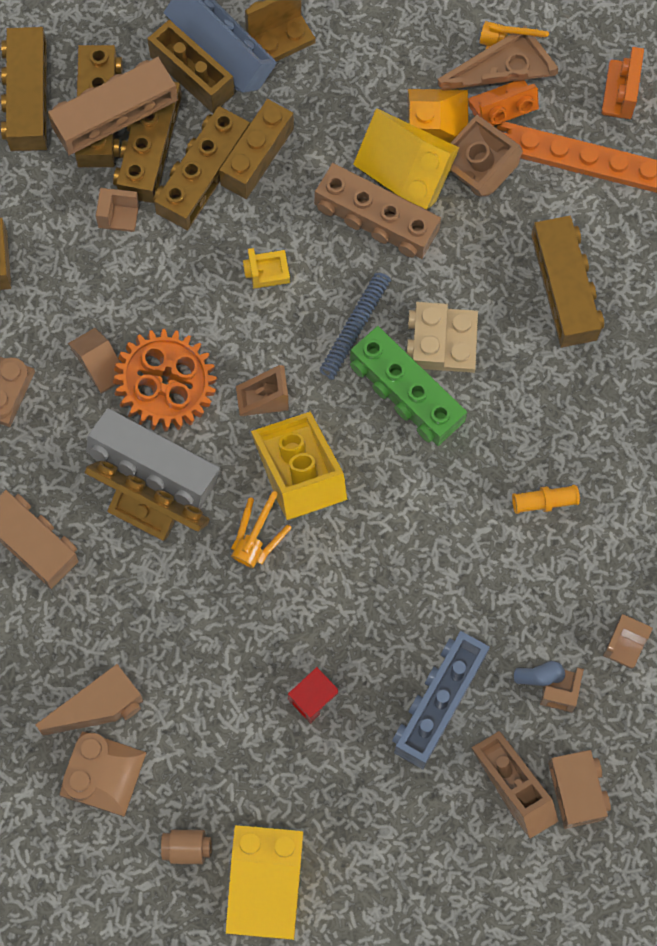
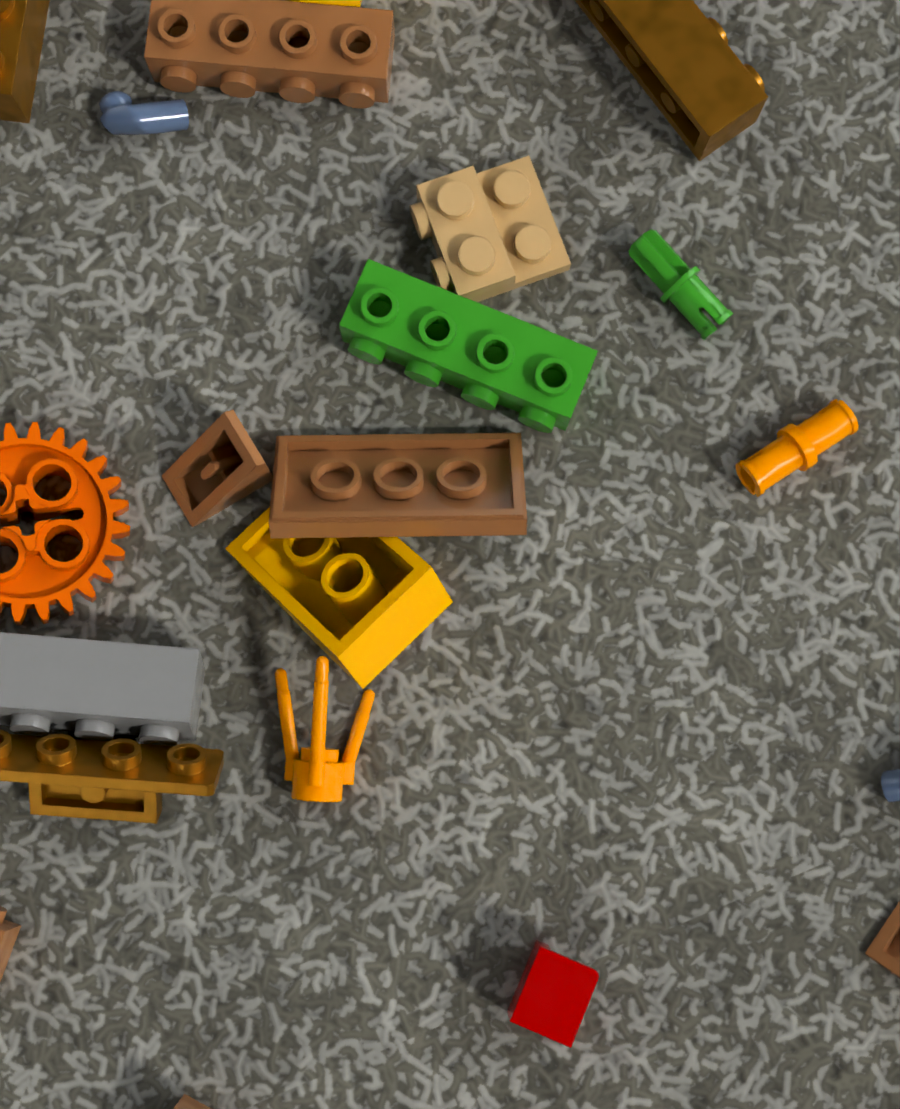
camera: 25 degrees left, 10 degrees up
(266, 268) = (120, 236): yellow bracket -> none
(301, 219) = (125, 118): none -> sand blue arm
(345, 434) = (398, 485): none -> medium nougat tile
(352, 325) = (335, 265): sand blue piece -> none
(441, 699) = (784, 907): sand blue brick -> none
(523, 400) = (678, 282): none -> bright green axle

